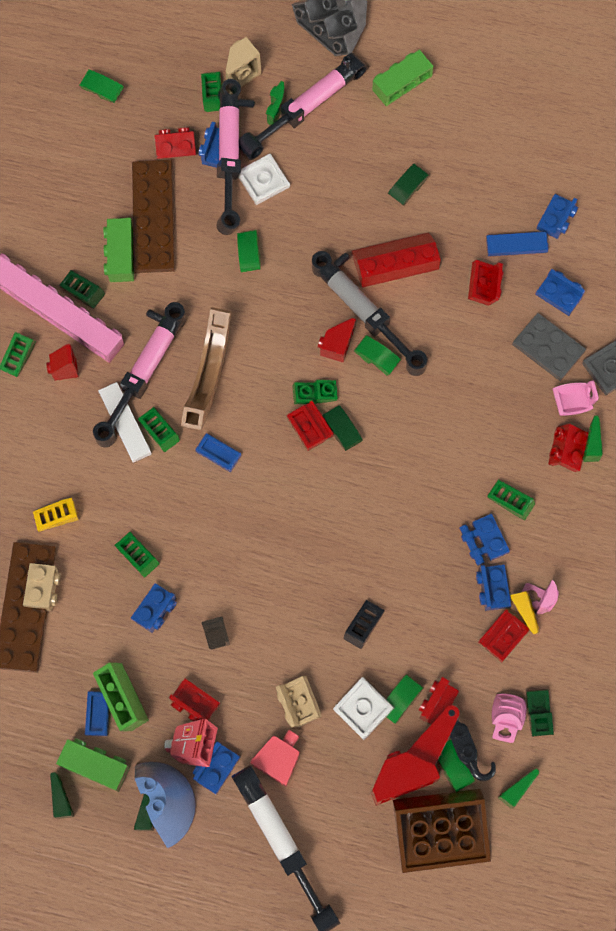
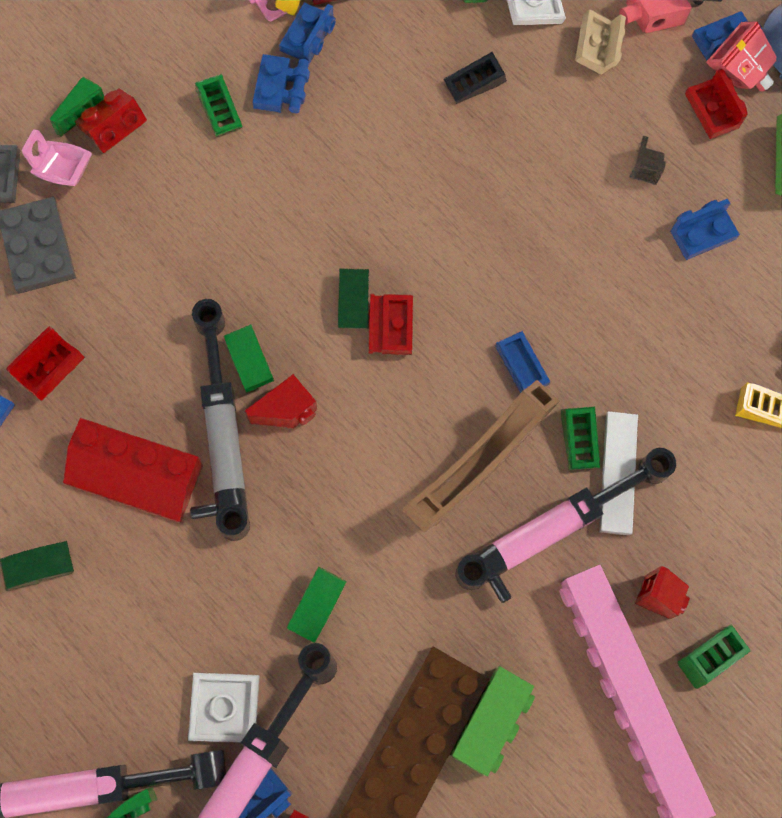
camera: 155 degrees left, 0 degrees up
(93, 294) = (586, 694): dark green slope -> none
(146, 563) = (680, 296): green slope -> none
(319, 392) = (356, 364): green slope -> none

